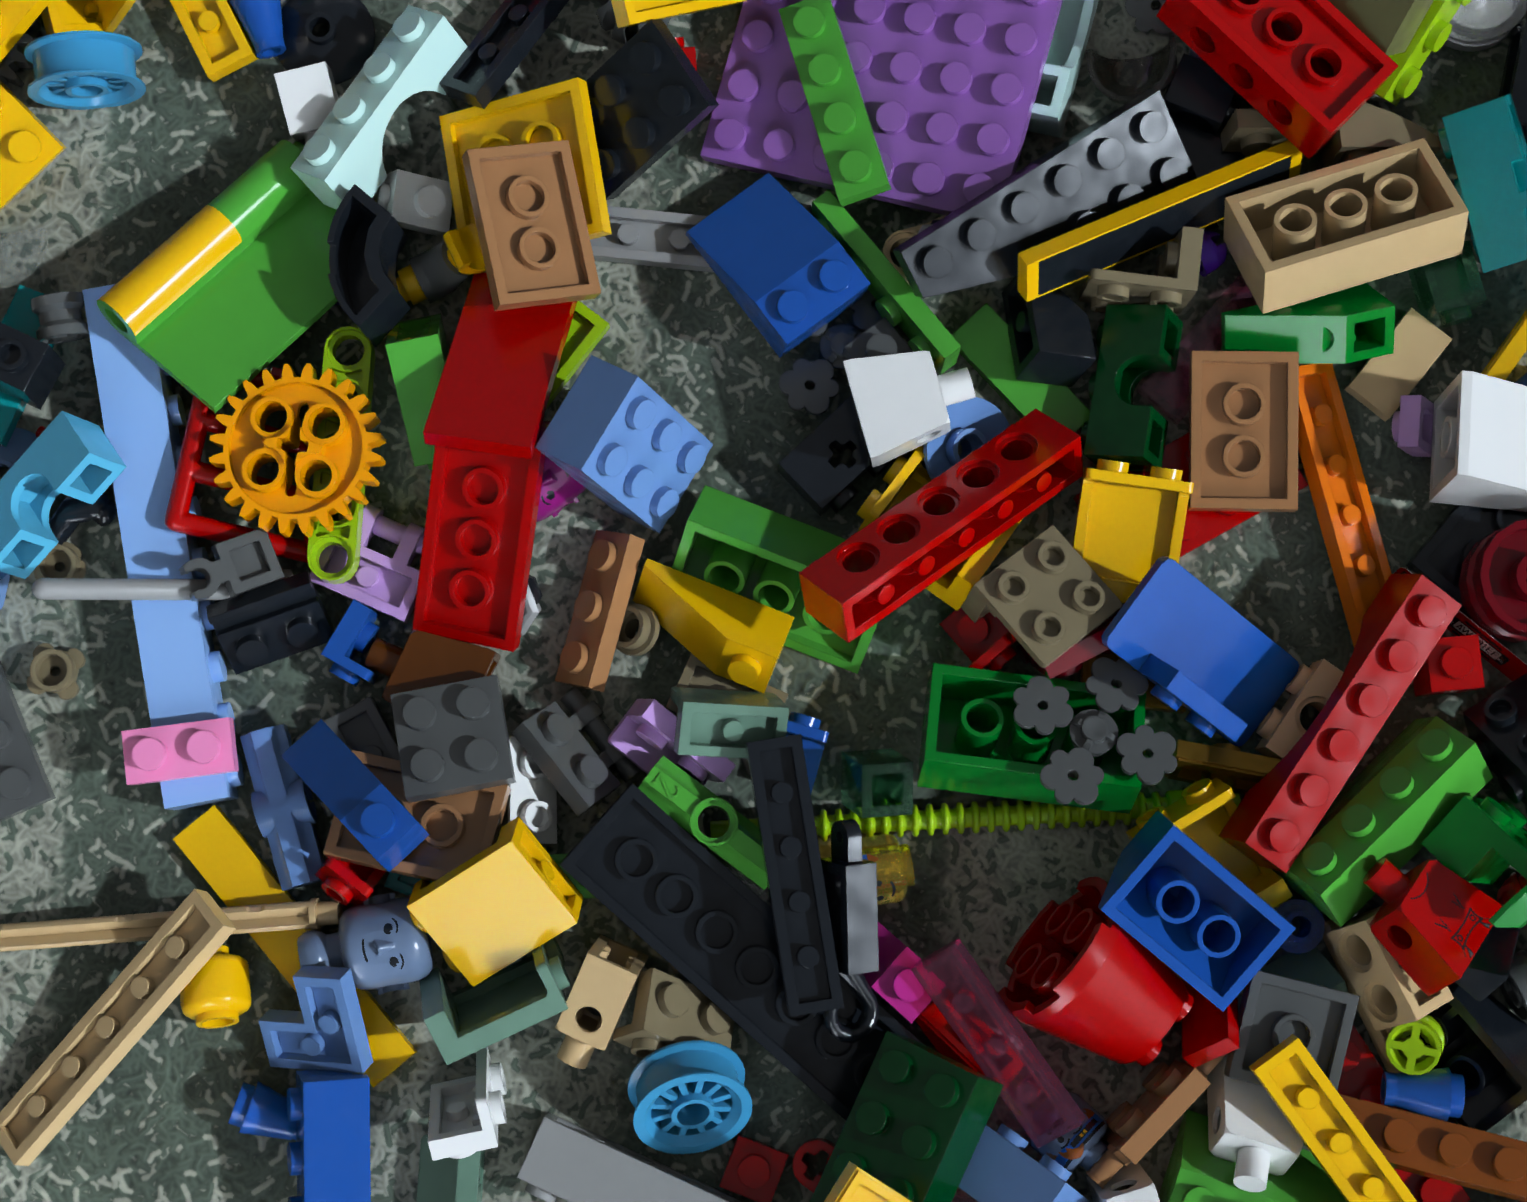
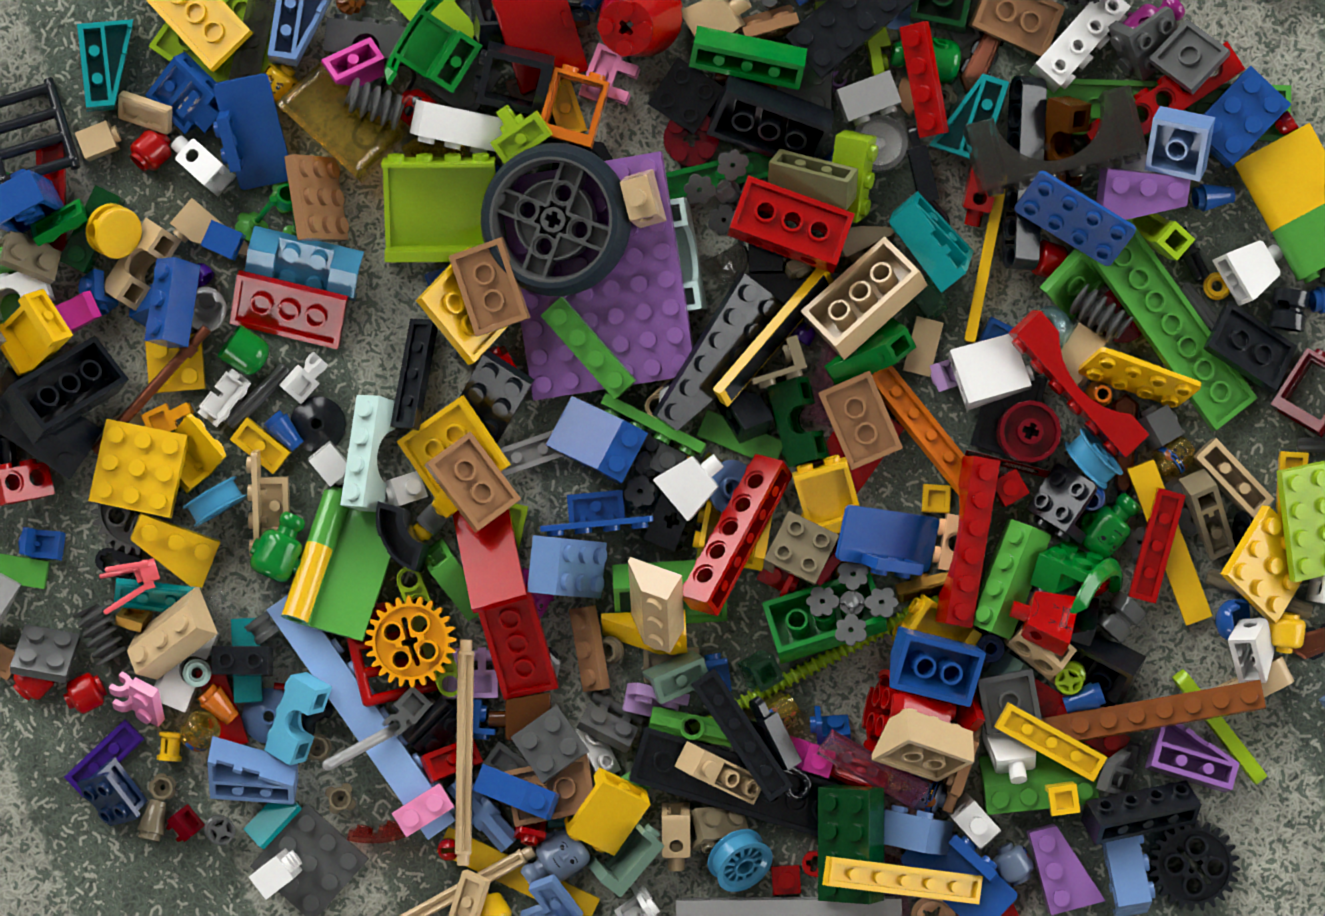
camera: 20 degrees left, 5 degrees up
(65, 752) = (386, 833): none -> clear red slope
(149, 199) = (278, 552): none -> green piece
(173, 121) = (269, 498): none -> tan bracket
(199, 832) = (446, 843): none -> red hinge
(273, 690) = (442, 762): none -> red plate
(298, 686) = (464, 752): none -> tan piece
(722, 384) = (596, 510): none -> blue bracket
(723, 922) = (718, 772): none -> tan slope
(752, 572) = (656, 604): none -> tan slope
(943, 927) = (823, 724): none -> blue bracket
(1113, 1042) = (924, 745): none -> tan slope
(1308, 629) = (936, 498): none -> yellow tile

